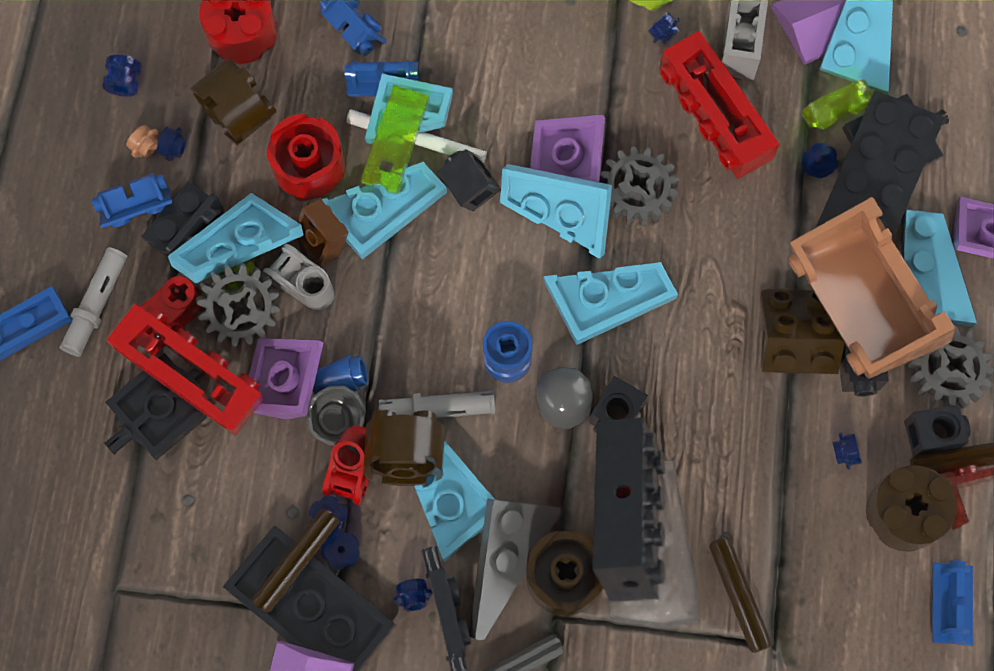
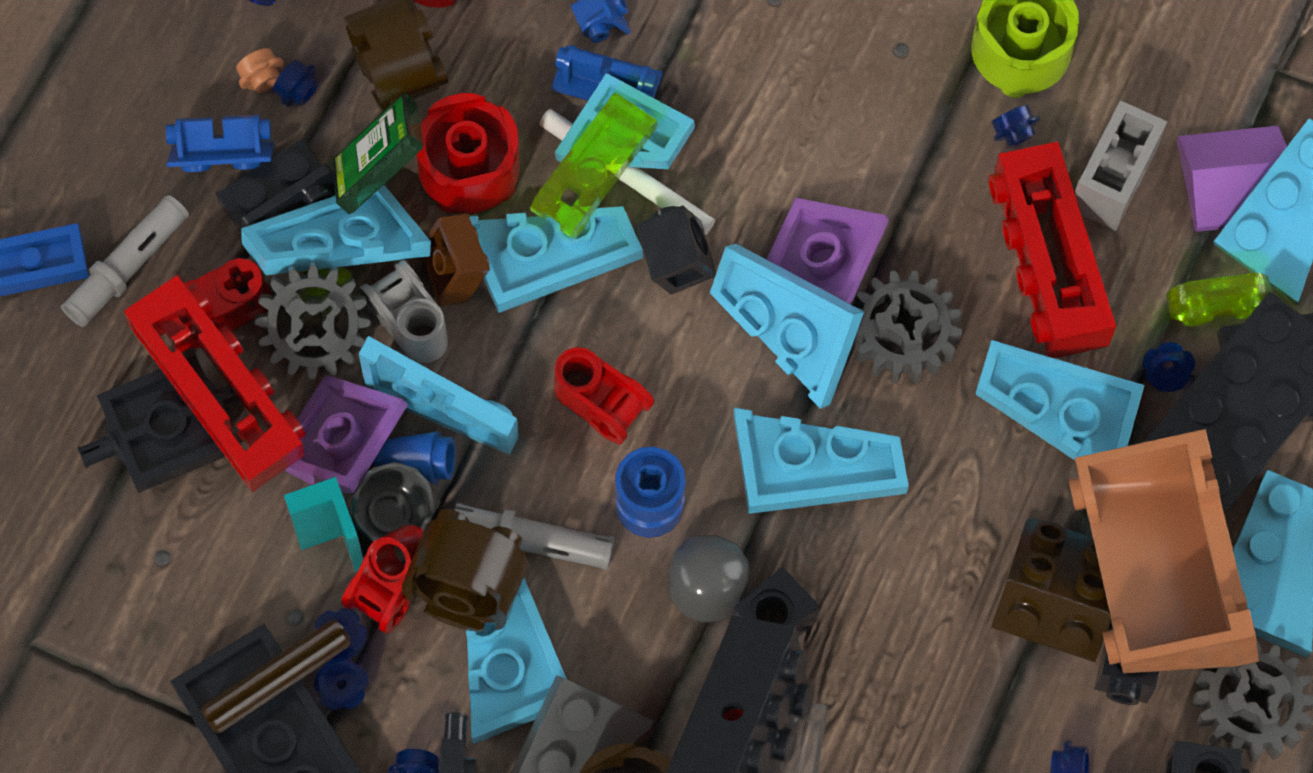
camera: 15 degrees right, 5 degrees down
(245, 175) = (377, 153): none -> tile
(290, 437) = (322, 515): none -> teal panel
(341, 331) = (437, 398): none -> medium azure wing
(453, 295) = (607, 401): none -> red piece
(759, 206) = (1060, 401): none -> medium azure wing

